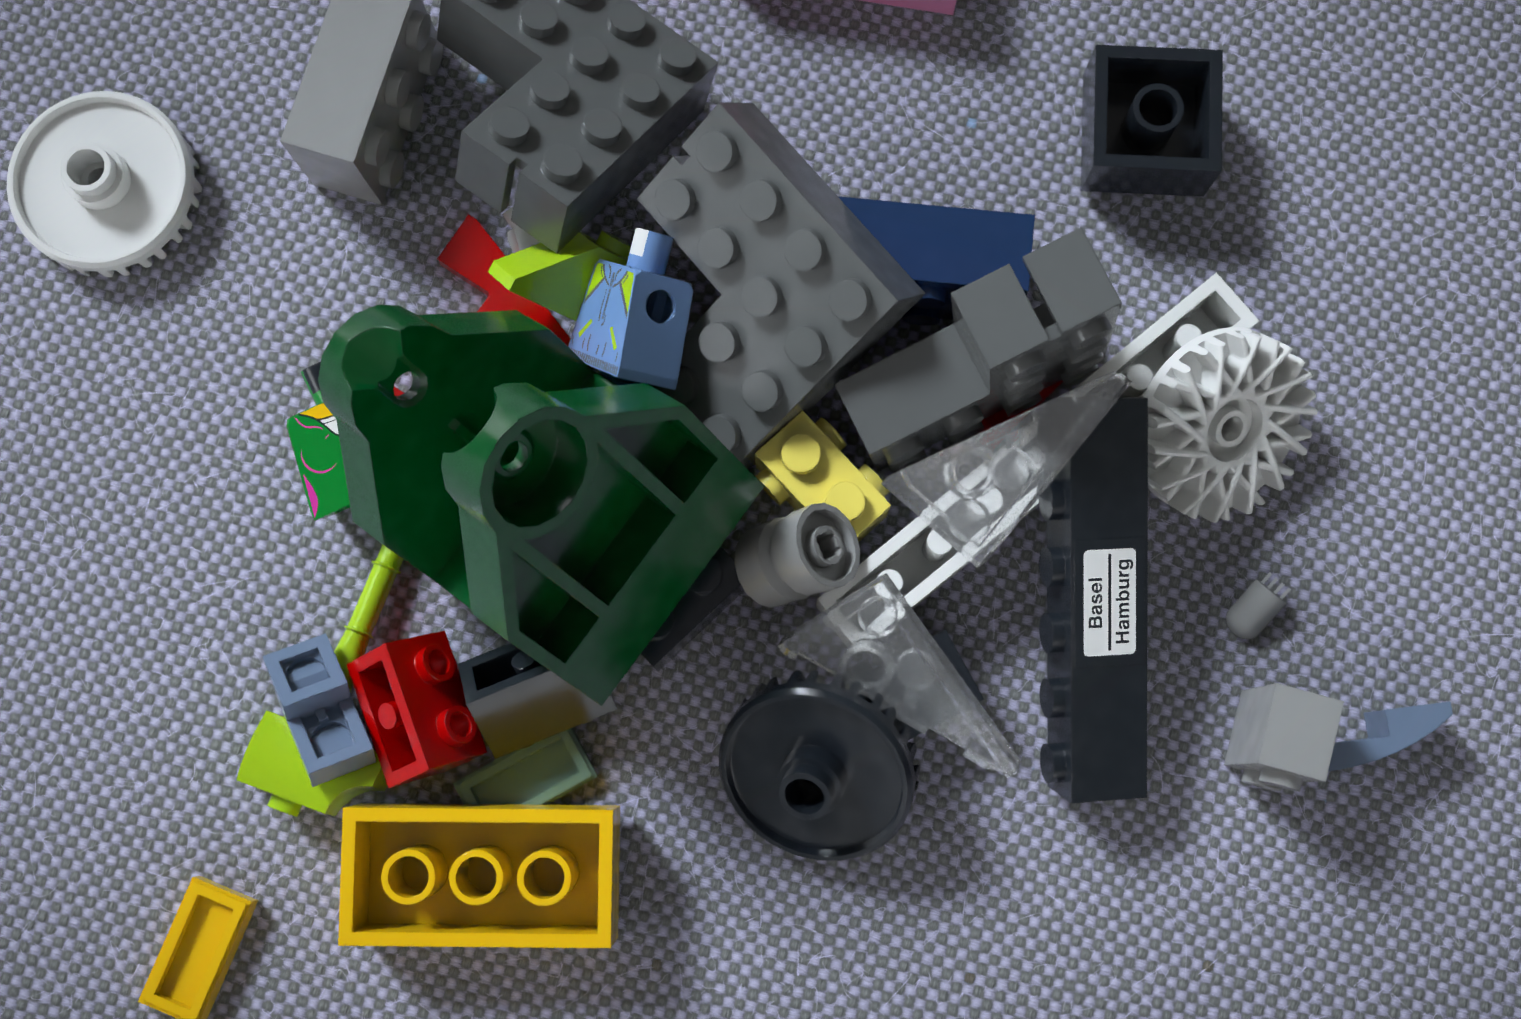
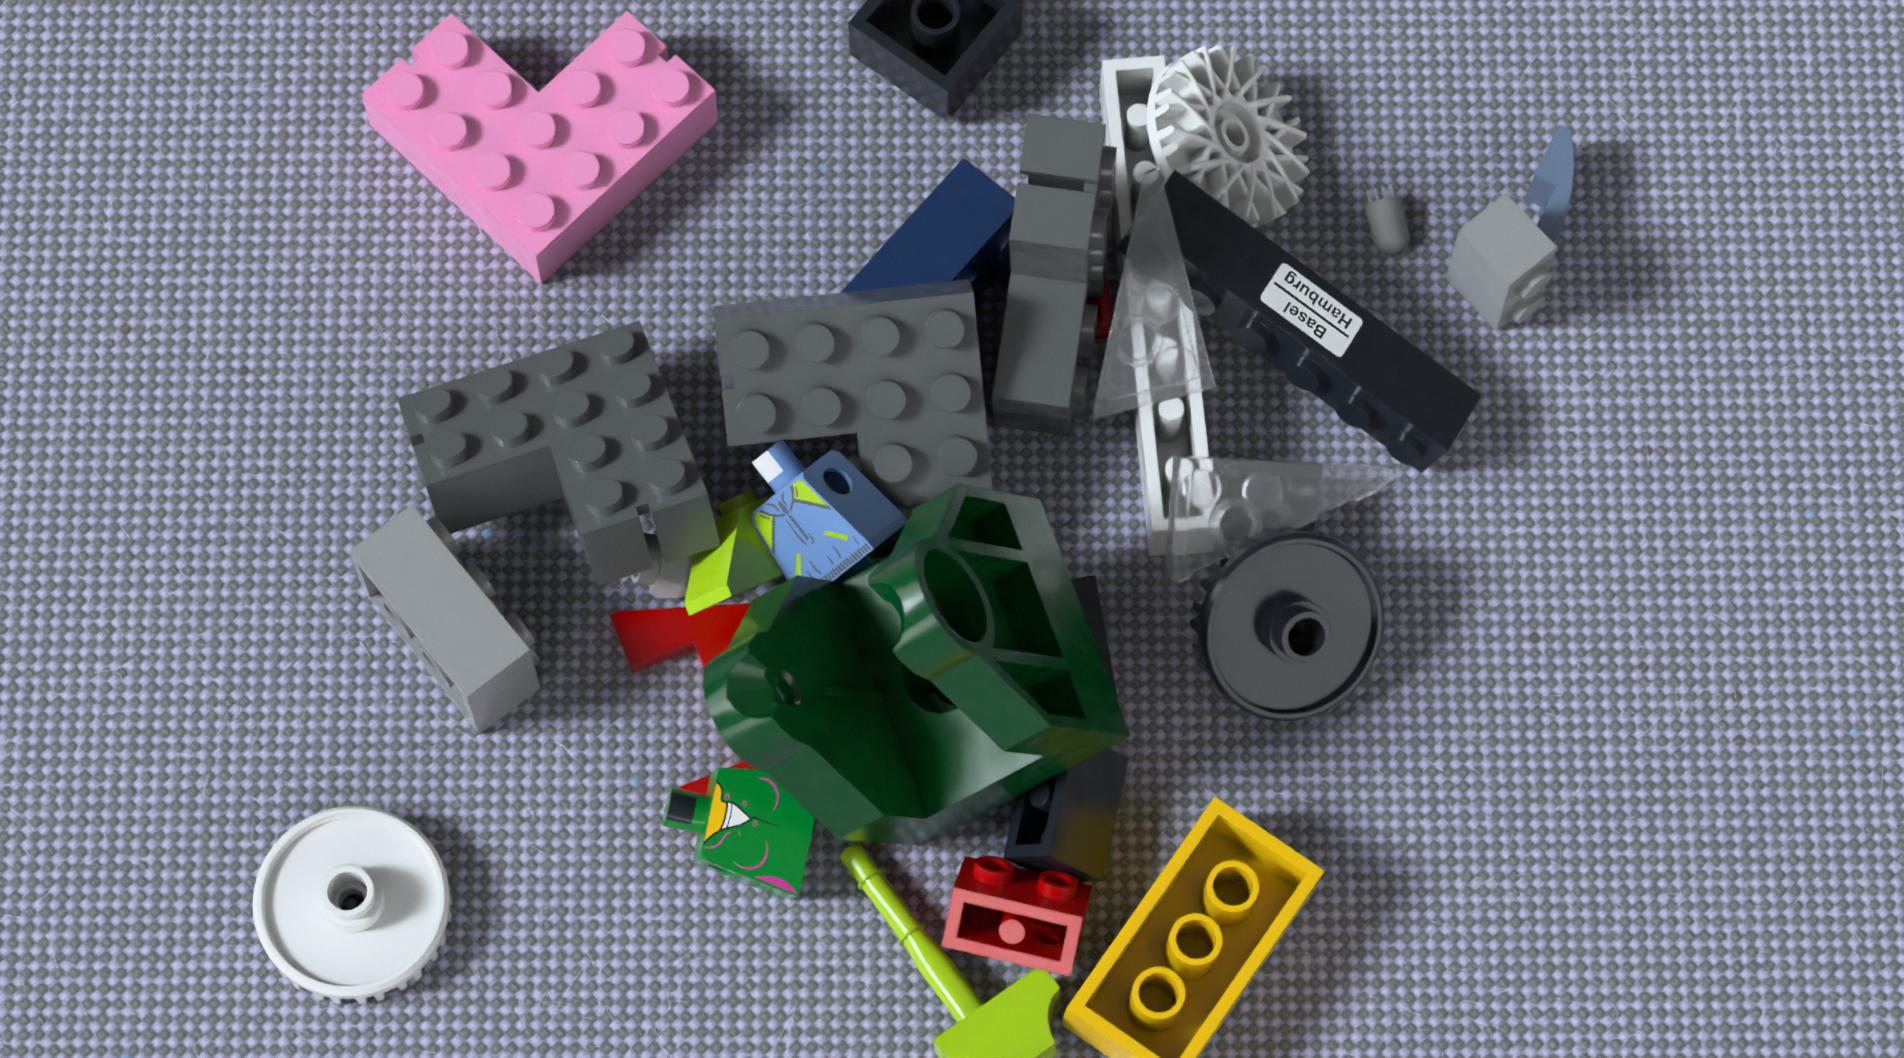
camera: 60 degrees left, 10 degrees down
(319, 709) = (958, 992): sand blue slope -> none
(530, 774) = (1134, 863): sand green tile -> none
(797, 555) = (1107, 523): light grey wheel -> none
(808, 468) = (1070, 473): light yellow brick -> none

